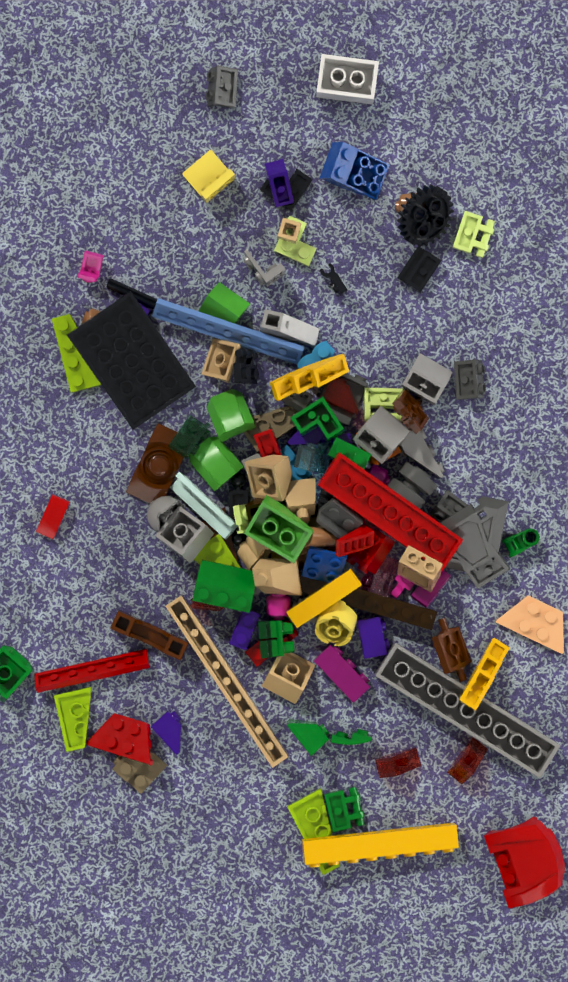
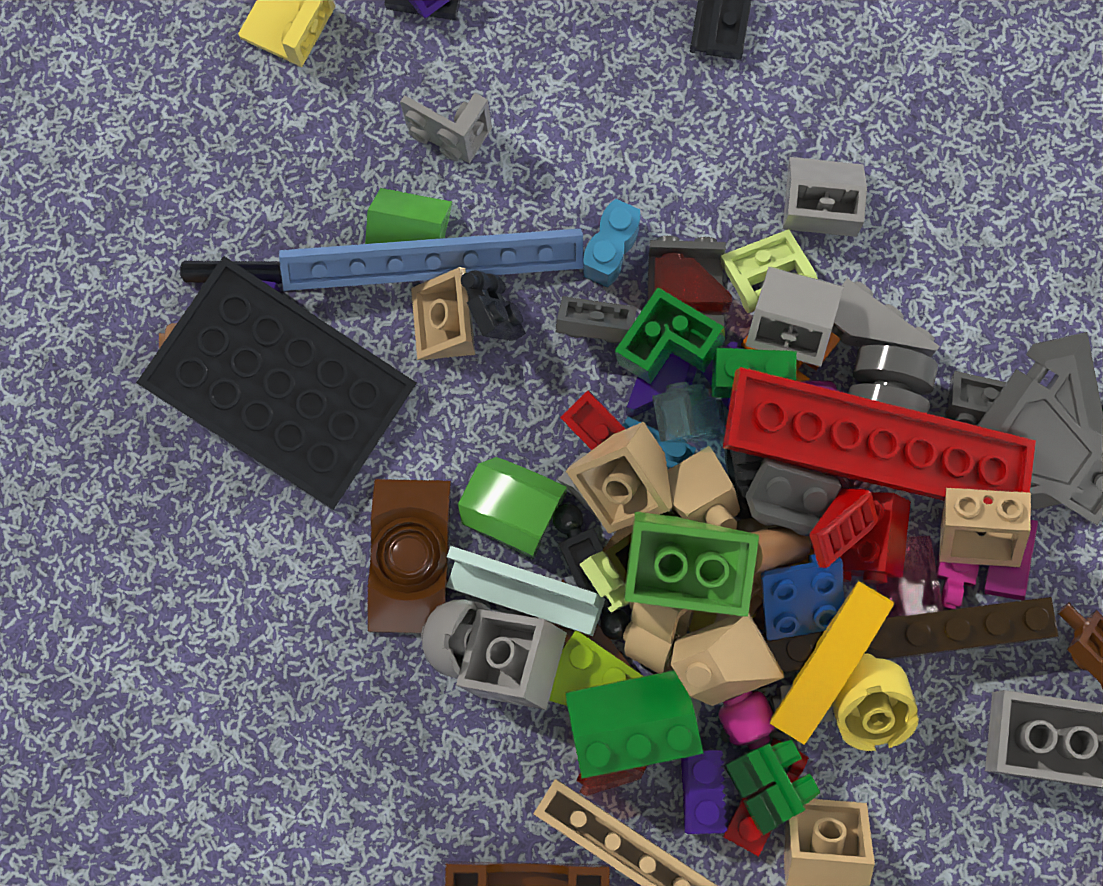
camera: 20 degrees left, 10 degrees down
(52, 516) = (248, 737): red slope -> none
(76, 369) = (187, 446): lime wing -> none
(91, 267) = (139, 254): dark pink bracket -> none
(189, 436) = (443, 476): clear green bracket -> none
(230, 414) = (501, 406): bright green slope -> none
(277, 419) = (595, 372): dark tan wing -> none
(288, 328) = (538, 208): light grey slope -> none
(289, 224) = (463, 32): tan plate -> none
(300, 251) = (481, 74): yellowish green plate -> none
(309, 376) = (615, 269): yellow slope -> none
(337, 284) = (589, 100): black plate -> none
(342, 672) = (927, 794): magenta brick -> none
(372, 637) = (951, 701): dark purple brick -> none
(410, 410) = (839, 262): reddish brown plate -> none
(469, 379) = (897, 164): dark grey bracket -> none

